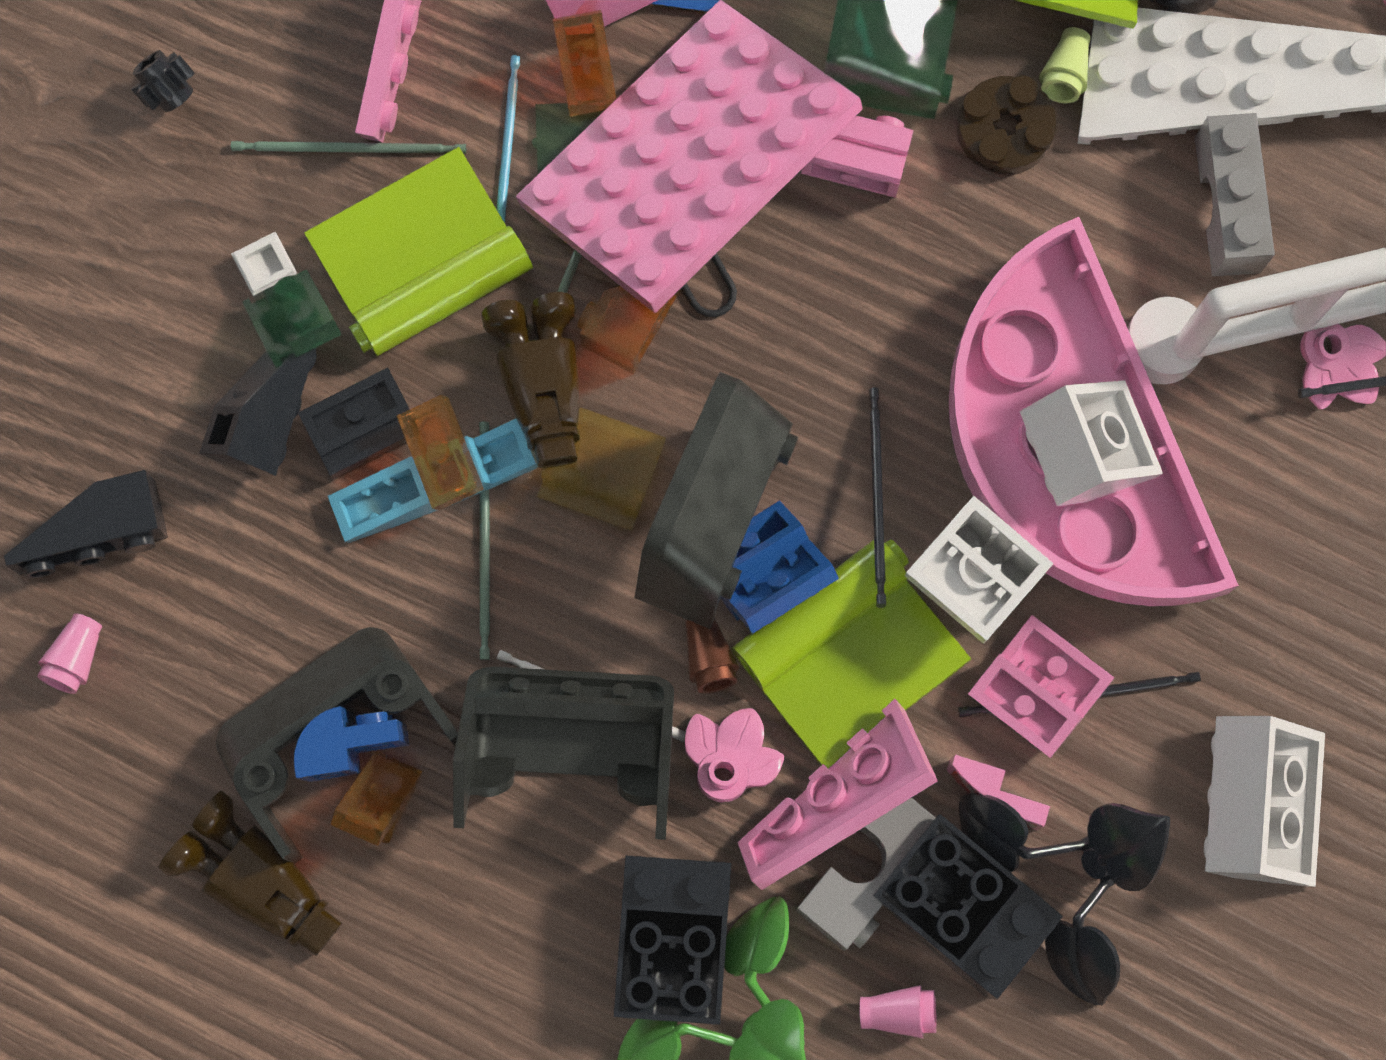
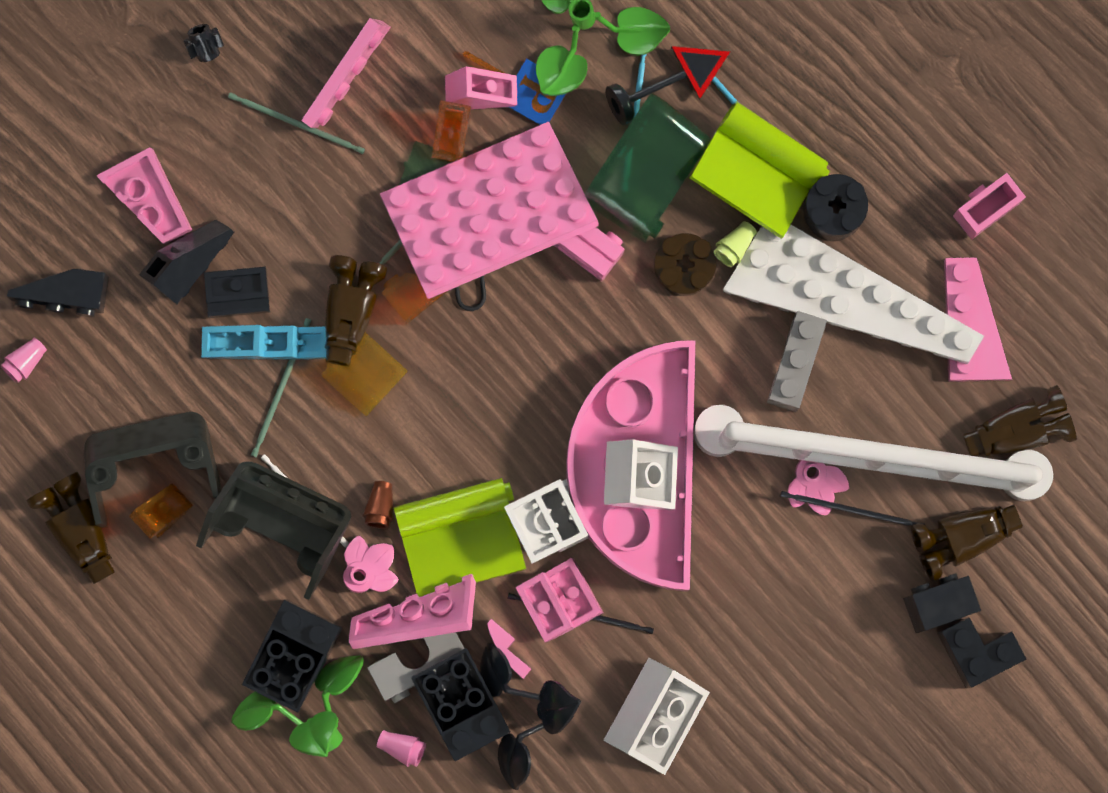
camera: 20 degrees right, 5 degrees up
(166, 332) = (148, 194): none -> bright pink wing
(263, 264) = (220, 176): white tile -> none
(292, 317) = (222, 215): clear green plate -> none
(332, 742) = (151, 469): blue brick -> none
(417, 252) = (310, 204): lime door -> none
(440, 452) = (274, 330): clear orange plate -> none
(508, 137) = (382, 171): medium azure piece -> none
(712, 502) = (413, 421): pearl dark grey windscreen -> none
(777, 568) = (431, 469): blue brick -> none
(877, 492) = (512, 454): black piece -> none

